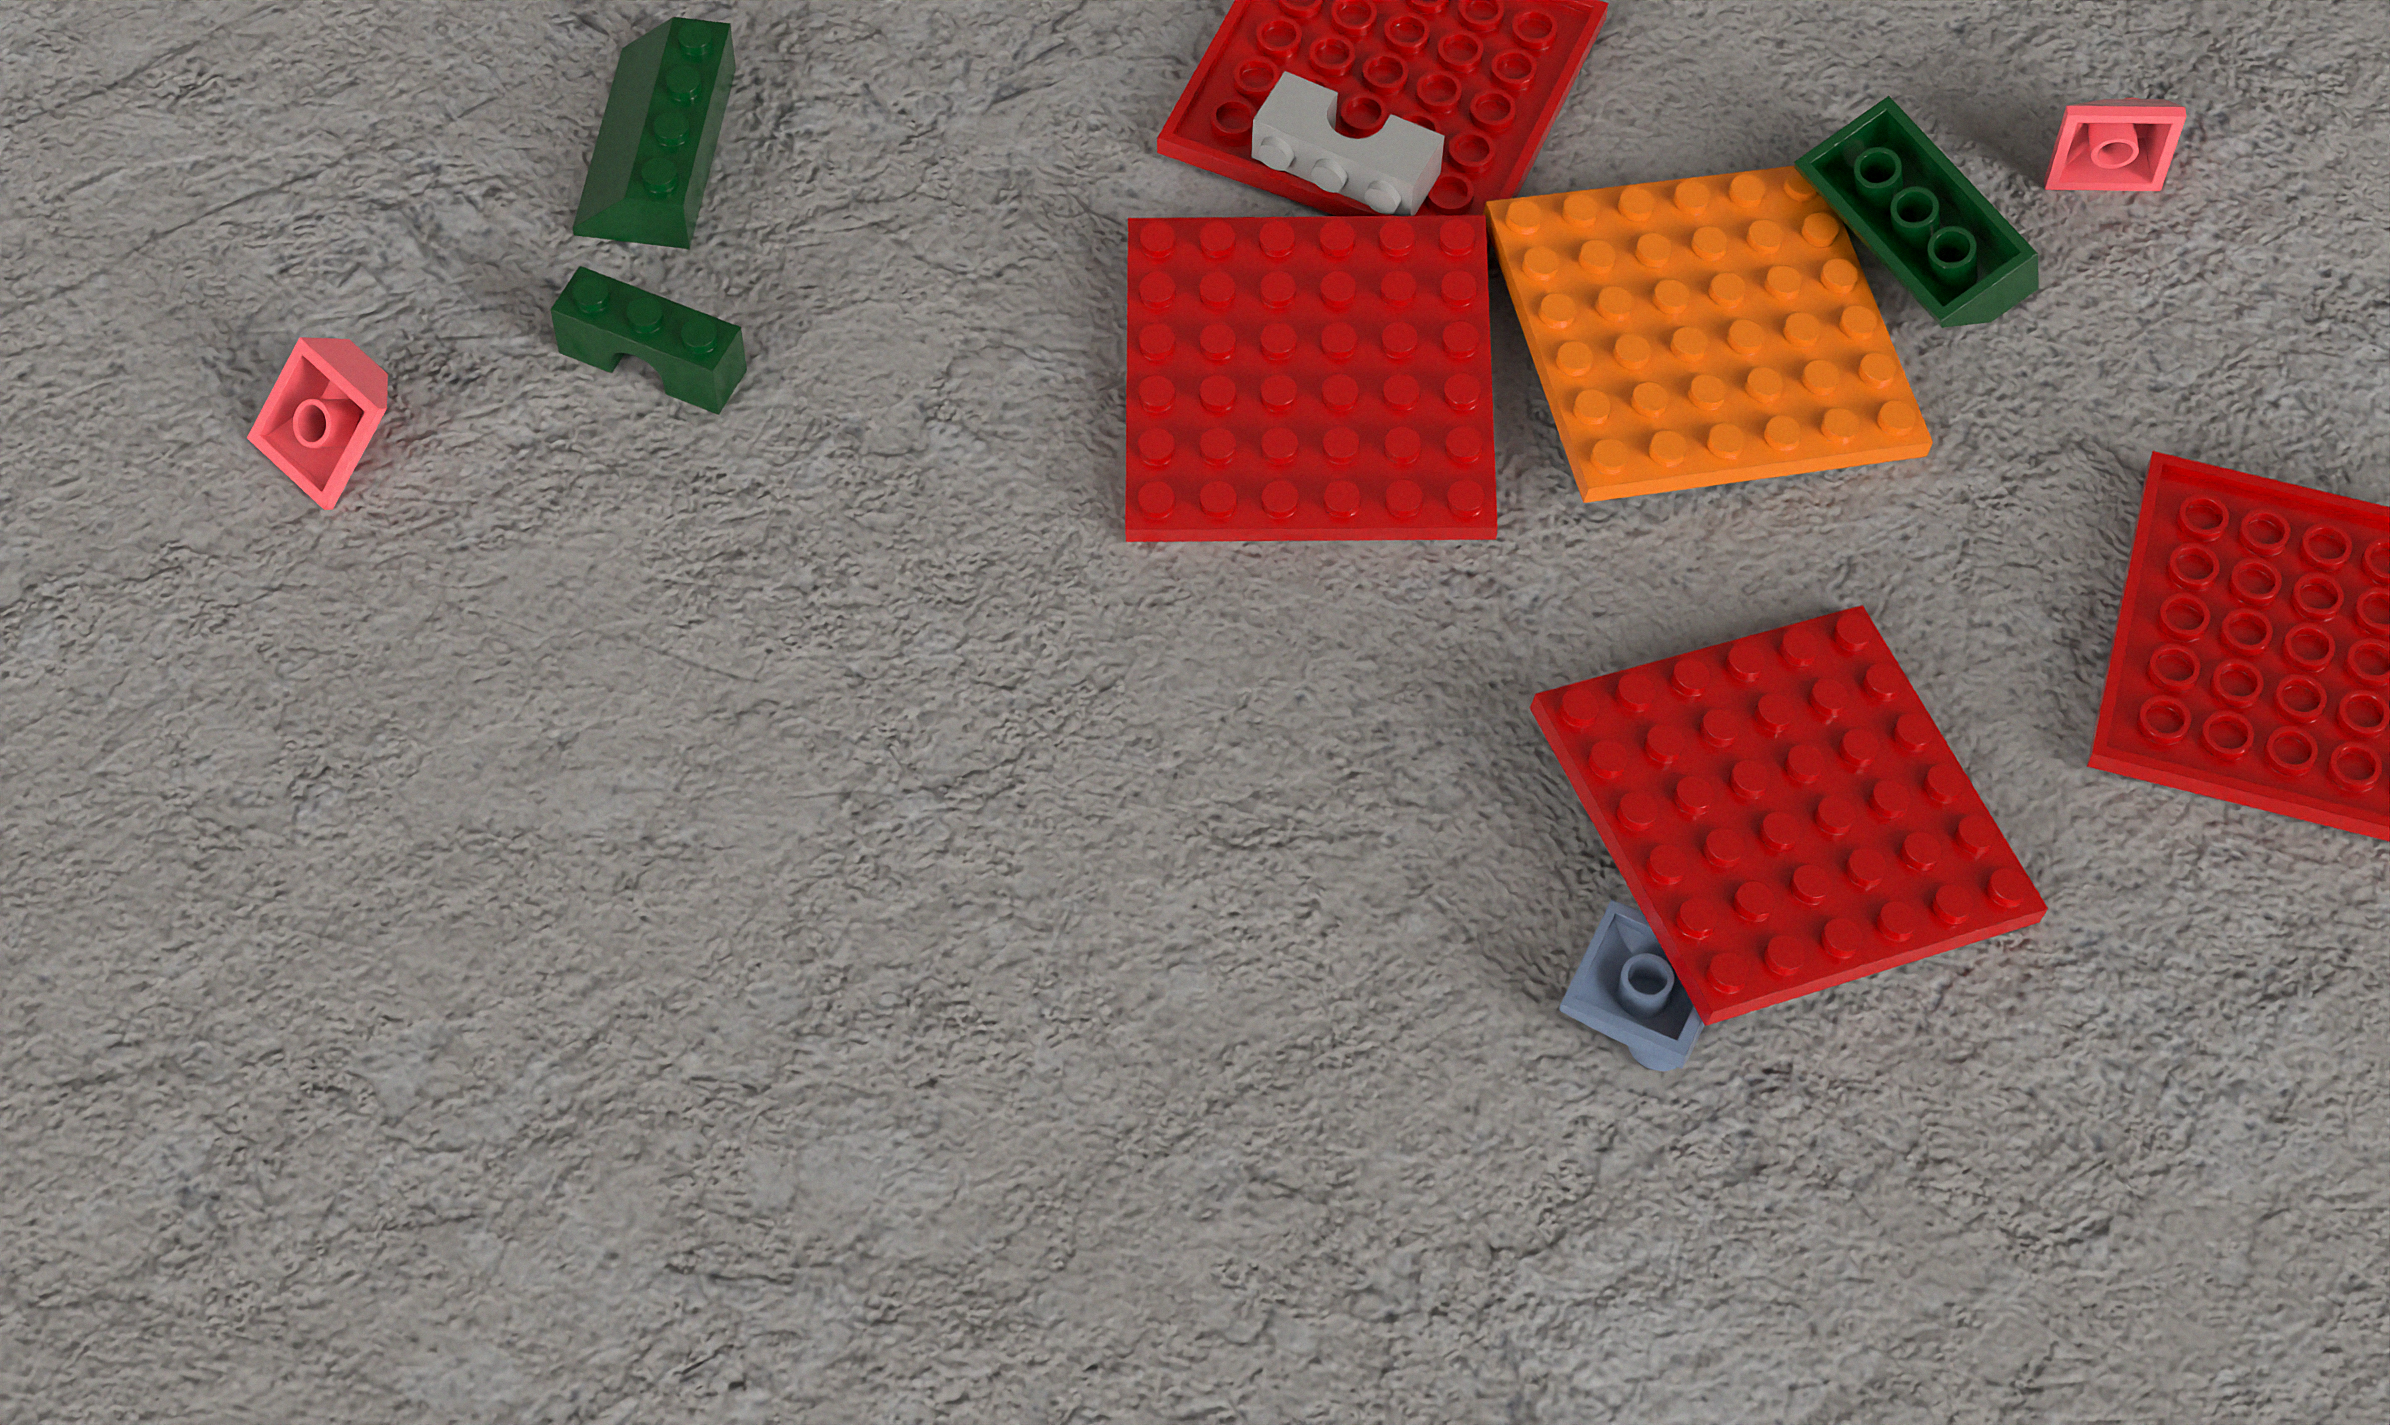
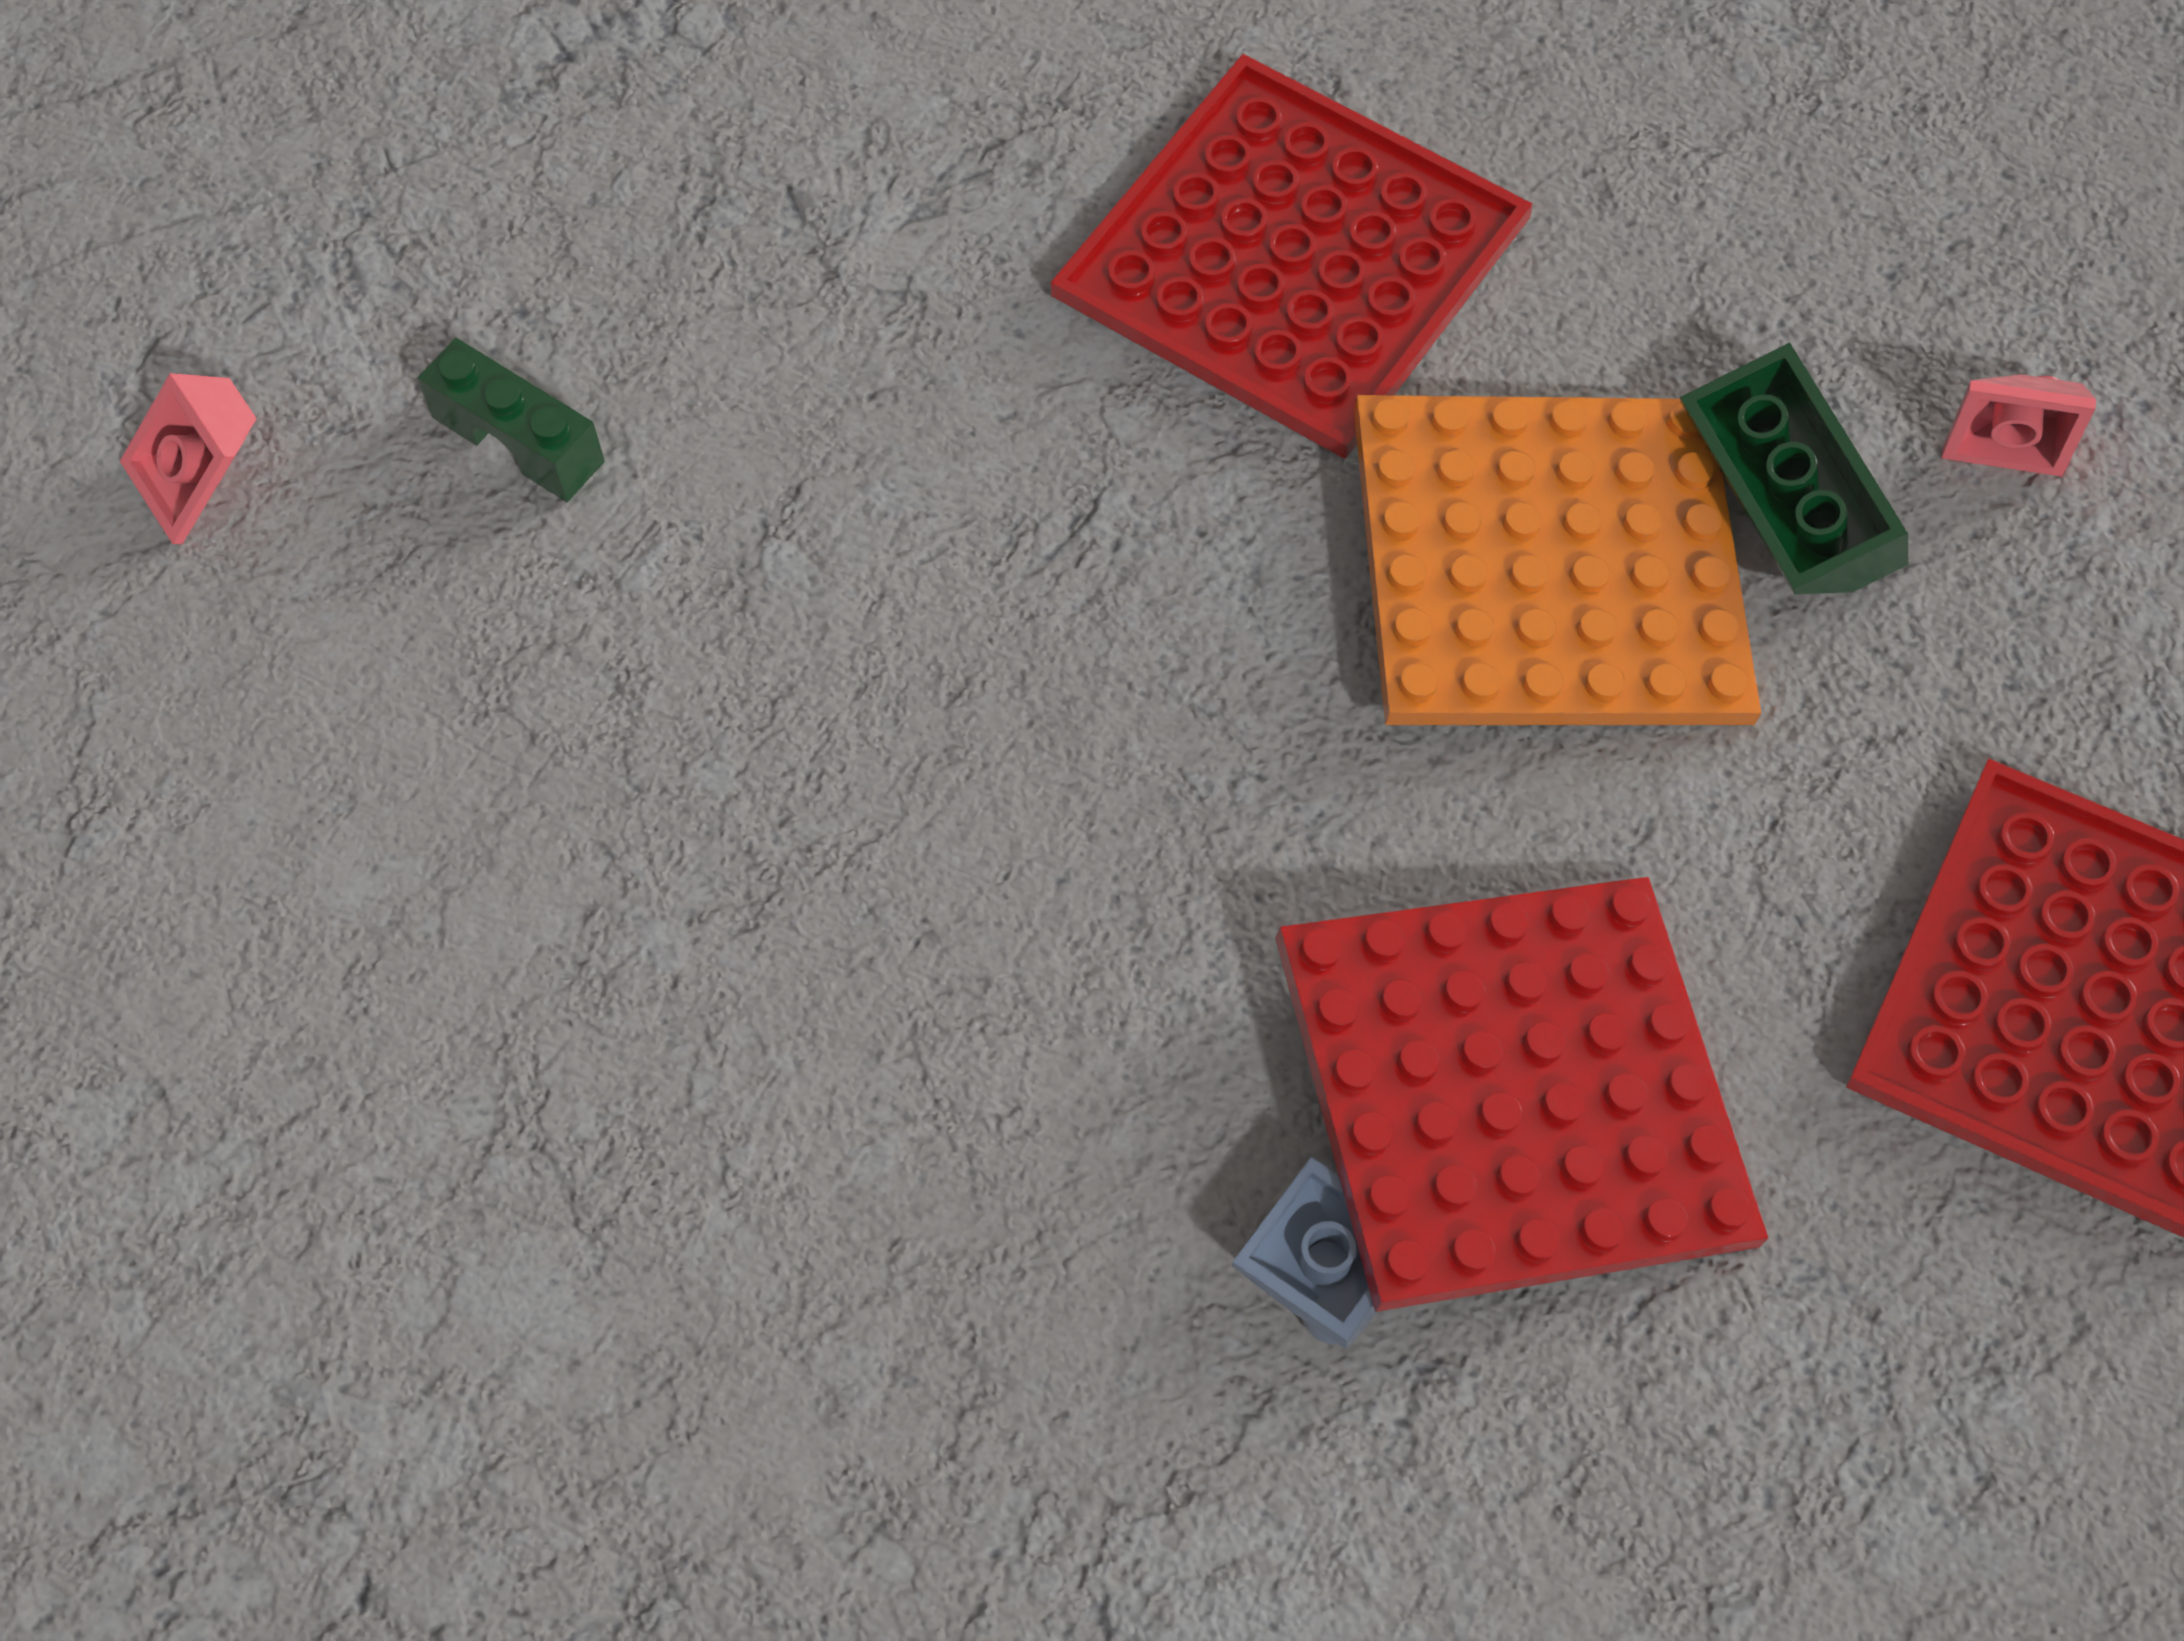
camera: 15 degrees right, 5 degrees up
(659, 135) = (577, 214): dark green slope -> none
(1309, 379) = (1142, 554): red plate -> none
(1383, 171) = (1263, 349): light grey arch -> none

